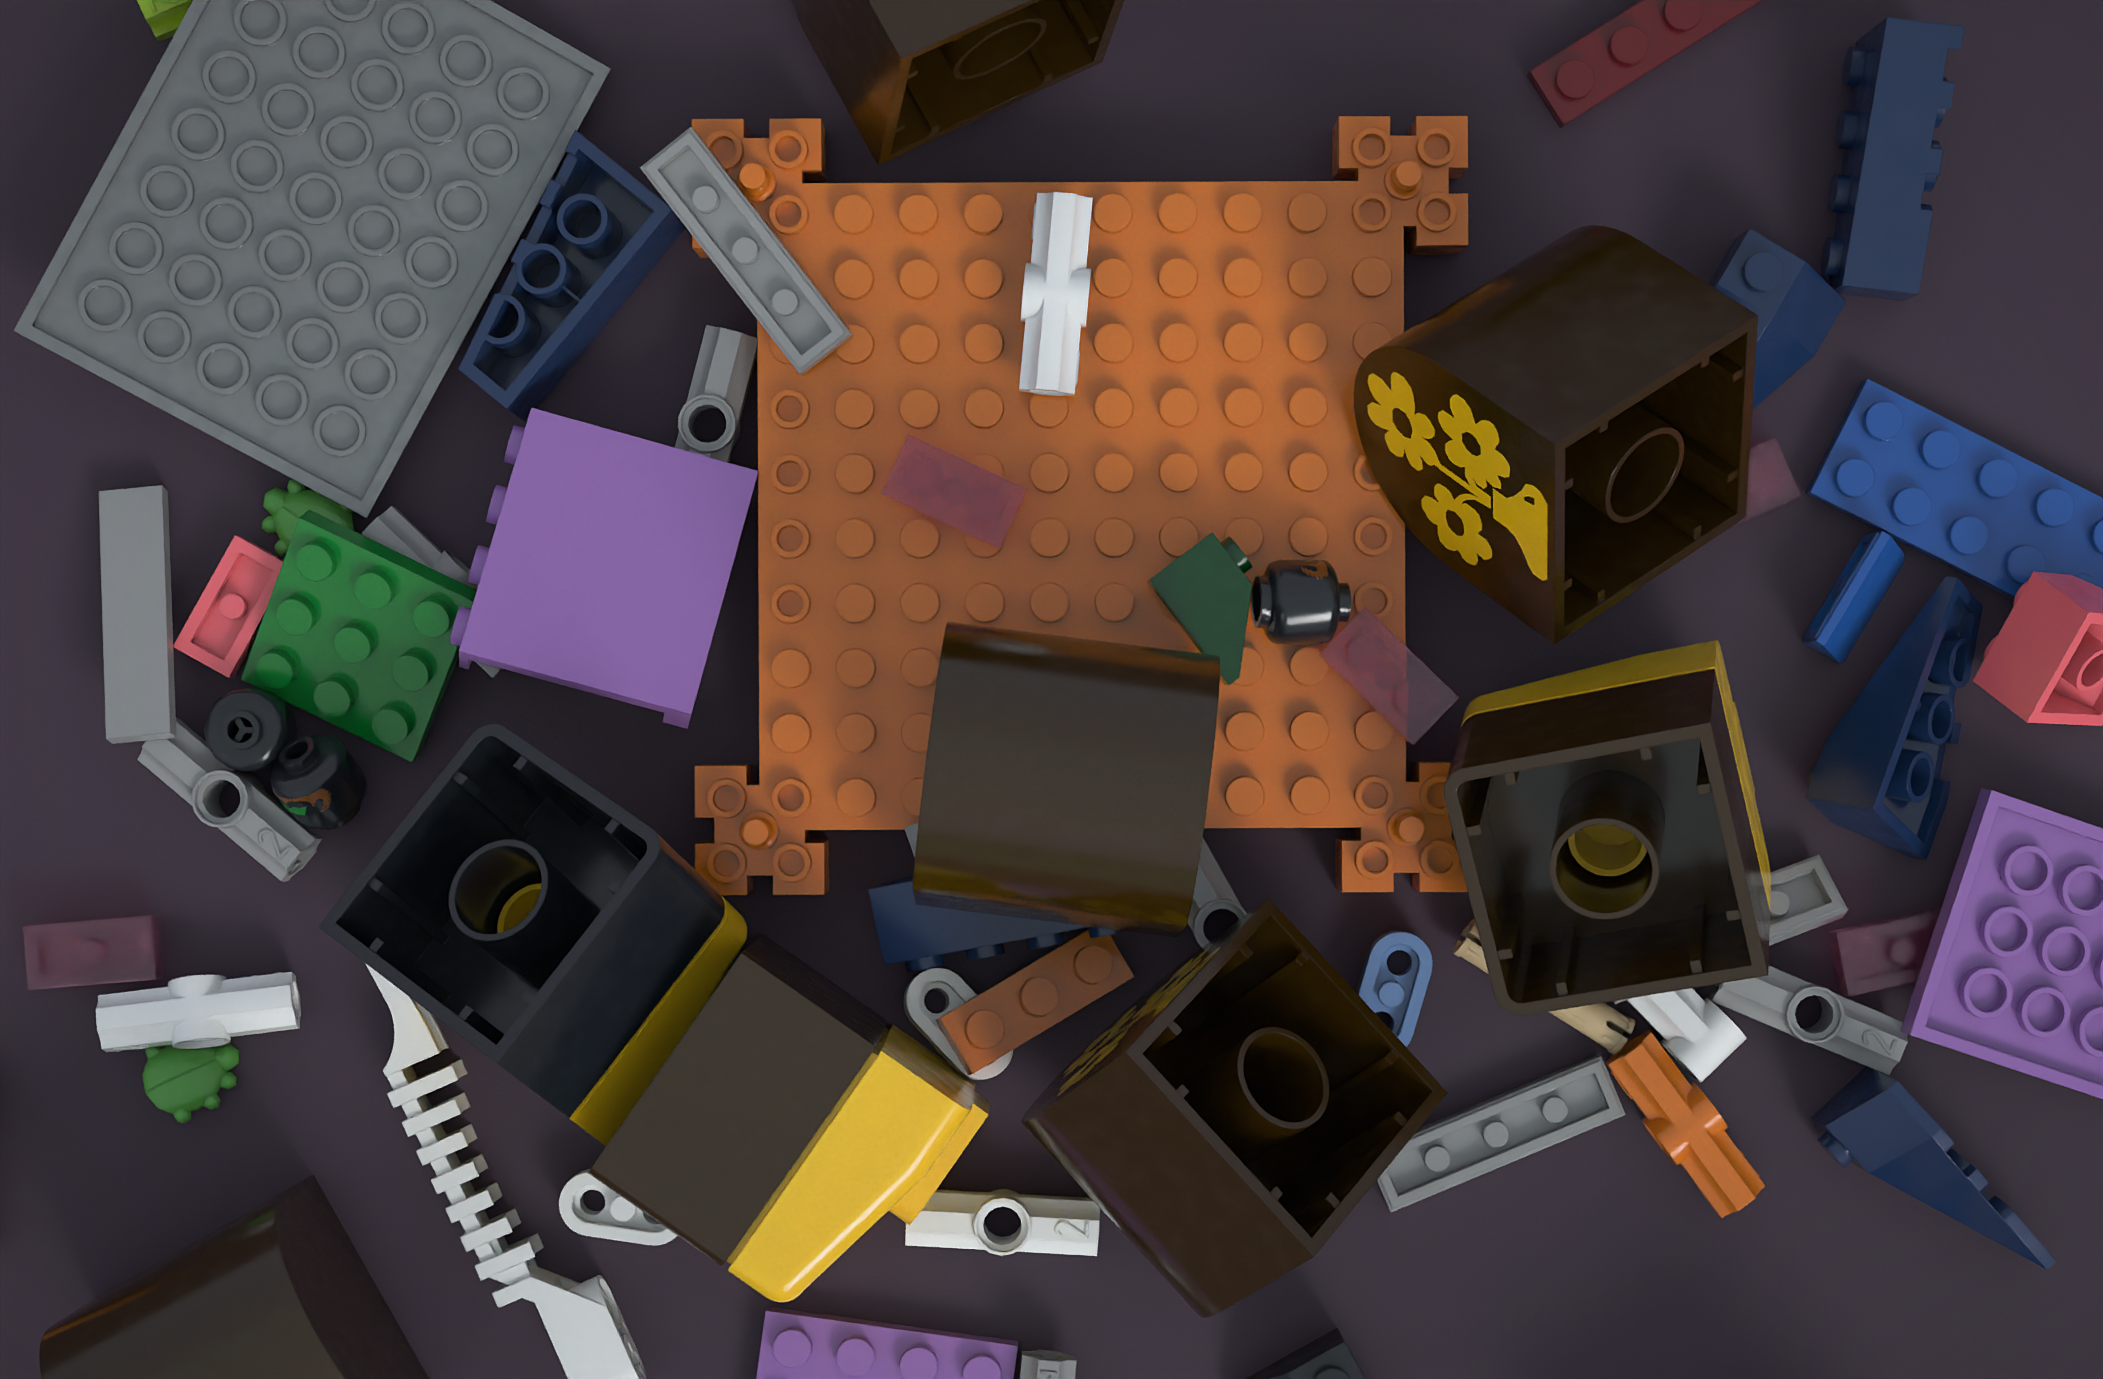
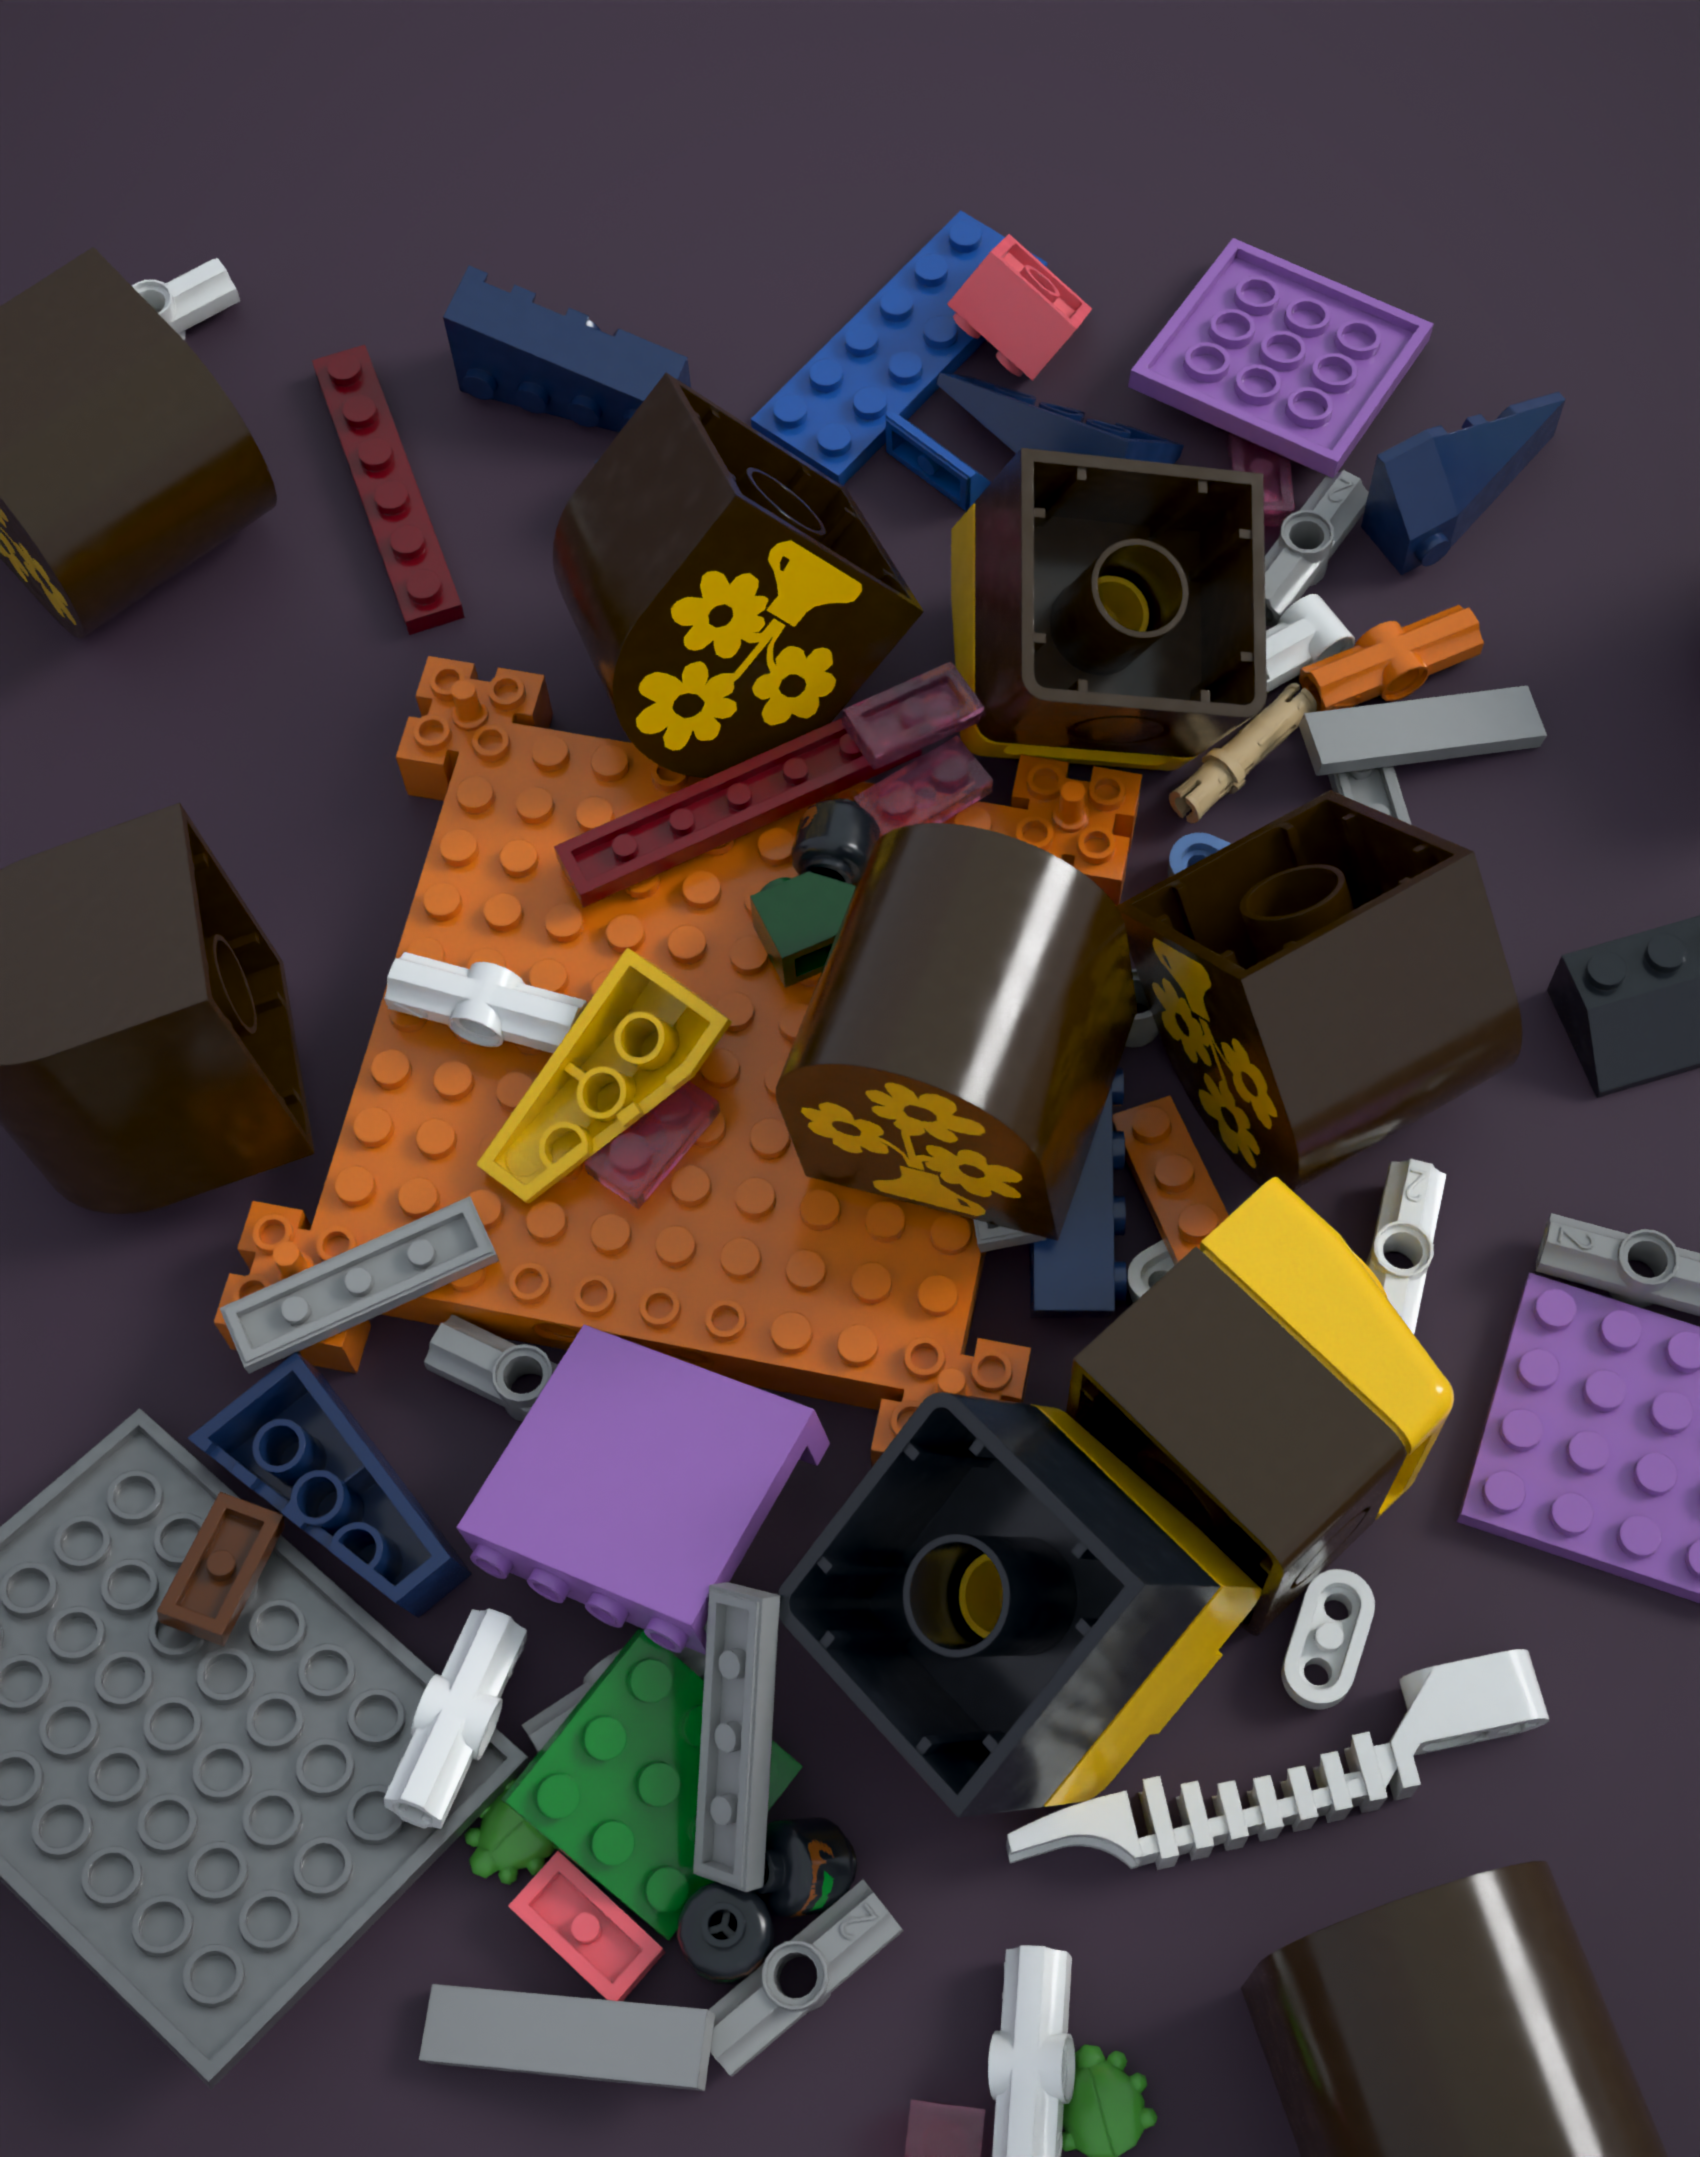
camera: 75 degrees left, 25 degrees down
(374, 450) = (455, 1719): none -> white piece
(391, 708) = (736, 1735): none -> light grey tile
(461, 199) = (221, 1569): none -> reddish brown plate
(1008, 447) = (616, 1063): none -> yellow wedge
(1339, 491) = (714, 812): none -> dark red plate
(1455, 651) = (912, 715): none -> clear pink plate
(1602, 1167) = (1422, 730): none -> light grey tile

